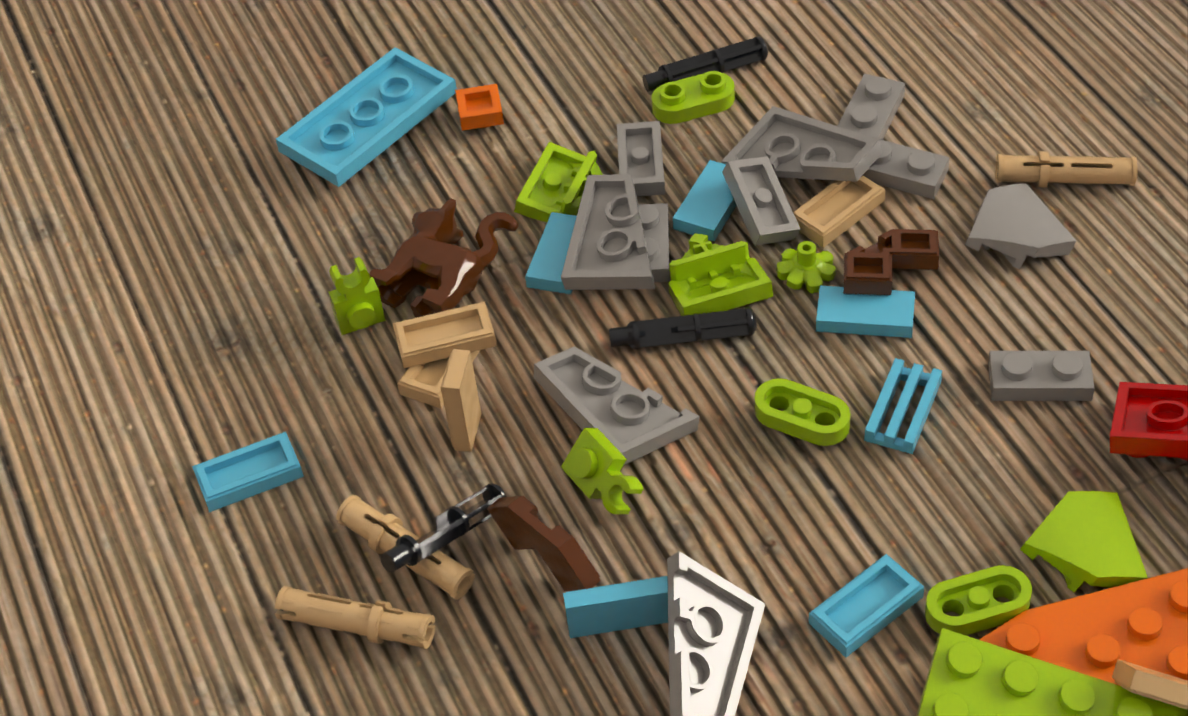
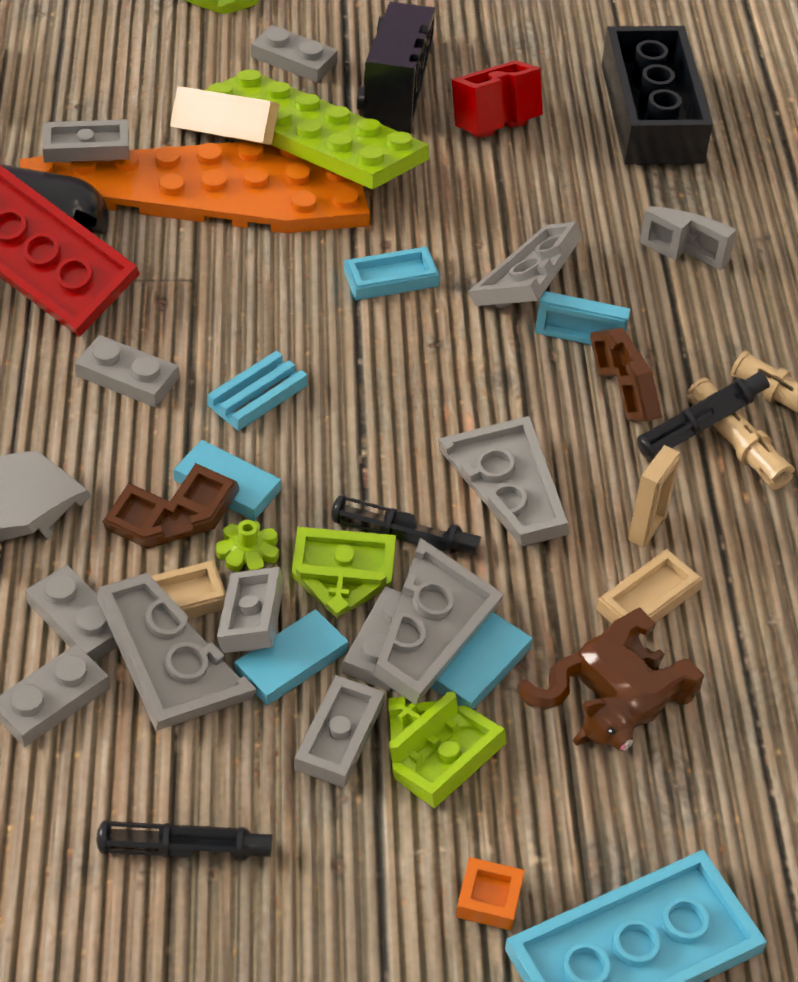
camera: 165 degrees left, 0 degrees up
(355, 299) = (726, 661): lime plate -> none
(437, 334) = (661, 595): tan tile -> none
(595, 469) = (551, 424): lime plate -> none
(693, 97) = (227, 802): lime plate -> none
(804, 412) = (348, 408): lime plate -> none
(975, 600) = (313, 236): lime plate -> none
(1088, 541) = (202, 242): lime slope -> none

